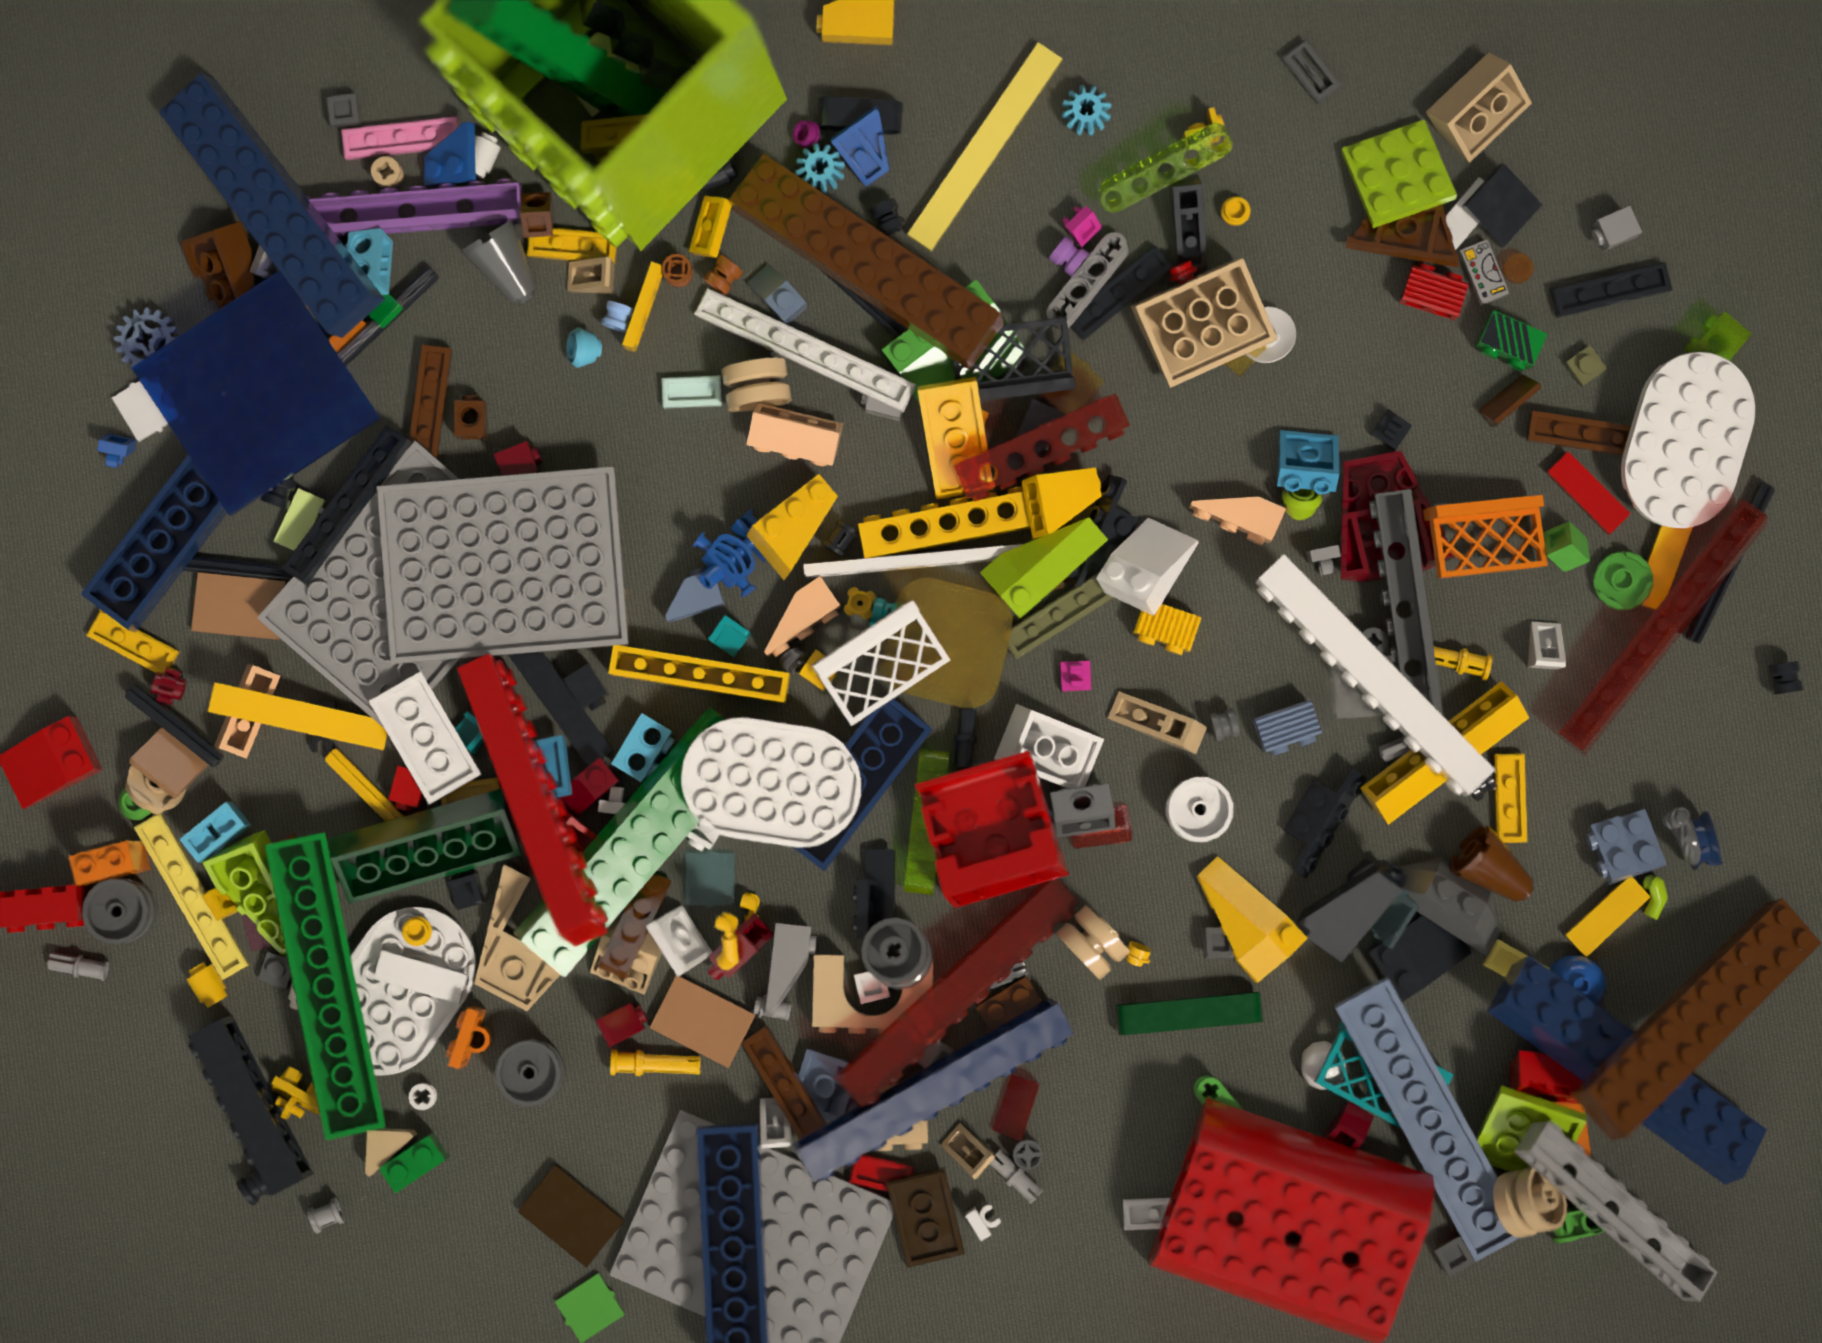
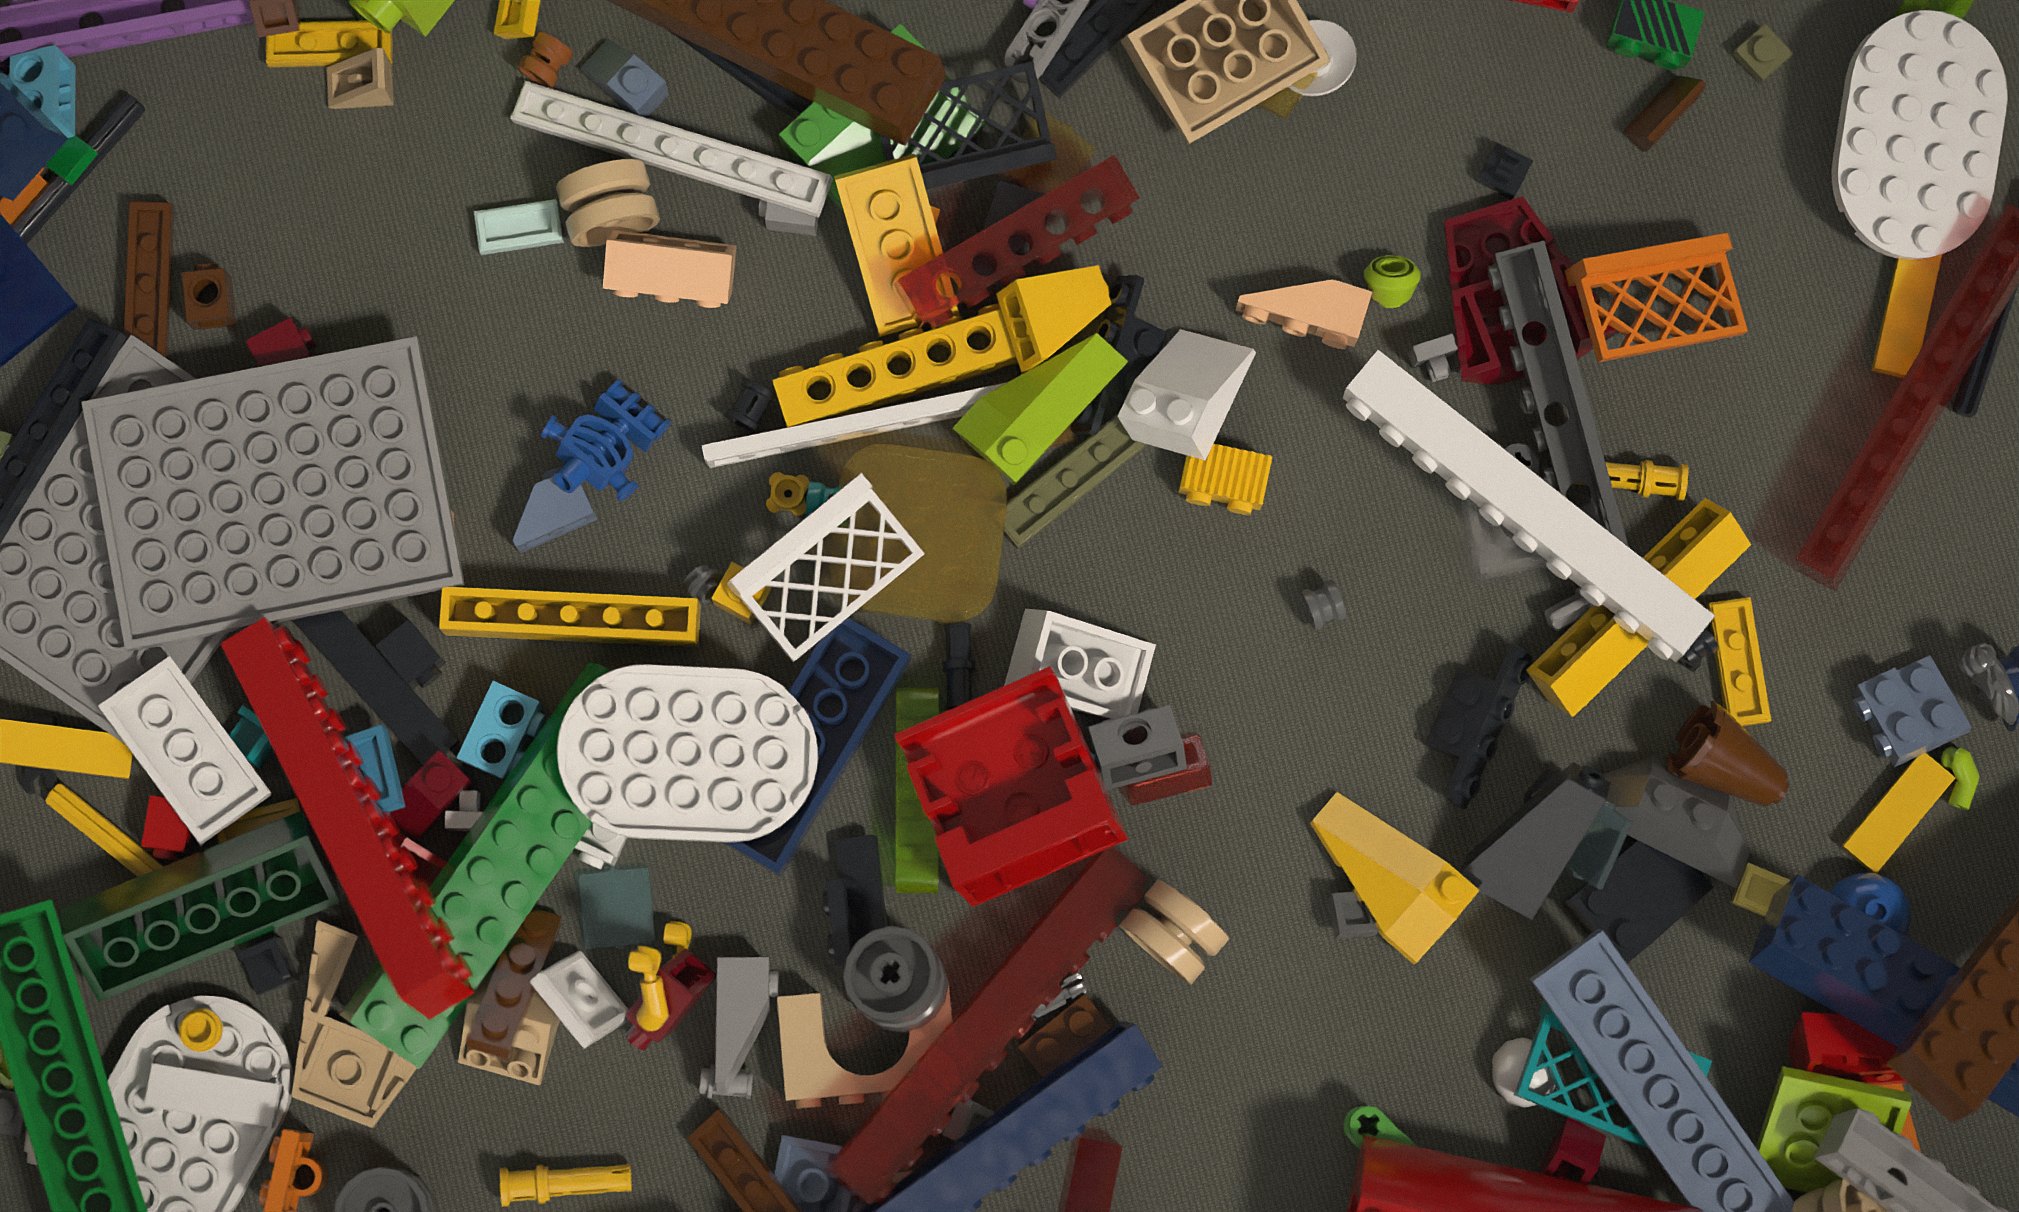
camera: 15 degrees left, 5 degrees down
(504, 262) = (233, 74): dark grey cone -> none
(582, 347) = (357, 181): medium azure cone -> none
(617, 316) = (403, 133): light blue wheel -> none
(622, 1023) = (511, 1128): dark red slope -> none
(643, 307) = (437, 116): yellow tile -> none
(677, 275) = (485, 68): dark orange wheel -> none
(702, 1021) = (627, 1113): medium nougat tile -> none
(729, 636) = (607, 560): teal panel -> none
(791, 525) = (678, 390): yellow wedge -> none
(805, 610) = (712, 511): light nougat slope -> none
(870, 988) = (863, 1036): plate -> none
(1075, 676) = (1105, 561): dark pink tile -> none
(1138, 954) = (1241, 943): yellow plate -> none
(1157, 722) = (1229, 612): tan slope -> none
(1189, 1013) = (1324, 1019): dark green beam -> none
(1217, 809) = (1327, 726): white wheel -> none
(1286, 727) = (1413, 597): sand blue brick -> none
(1308, 461) = (1395, 225): dark azure plate -> none
(1546, 646) = (1761, 445): white slope -> none
(1566, 546) = (1770, 302): bright green panel -> none
(1577, 433) = (1764, 145): reddish brown plate -> none
(1588, 493) = (1790, 227): red tile -> none
(1623, 580) = (1856, 341): bright green tile -> none

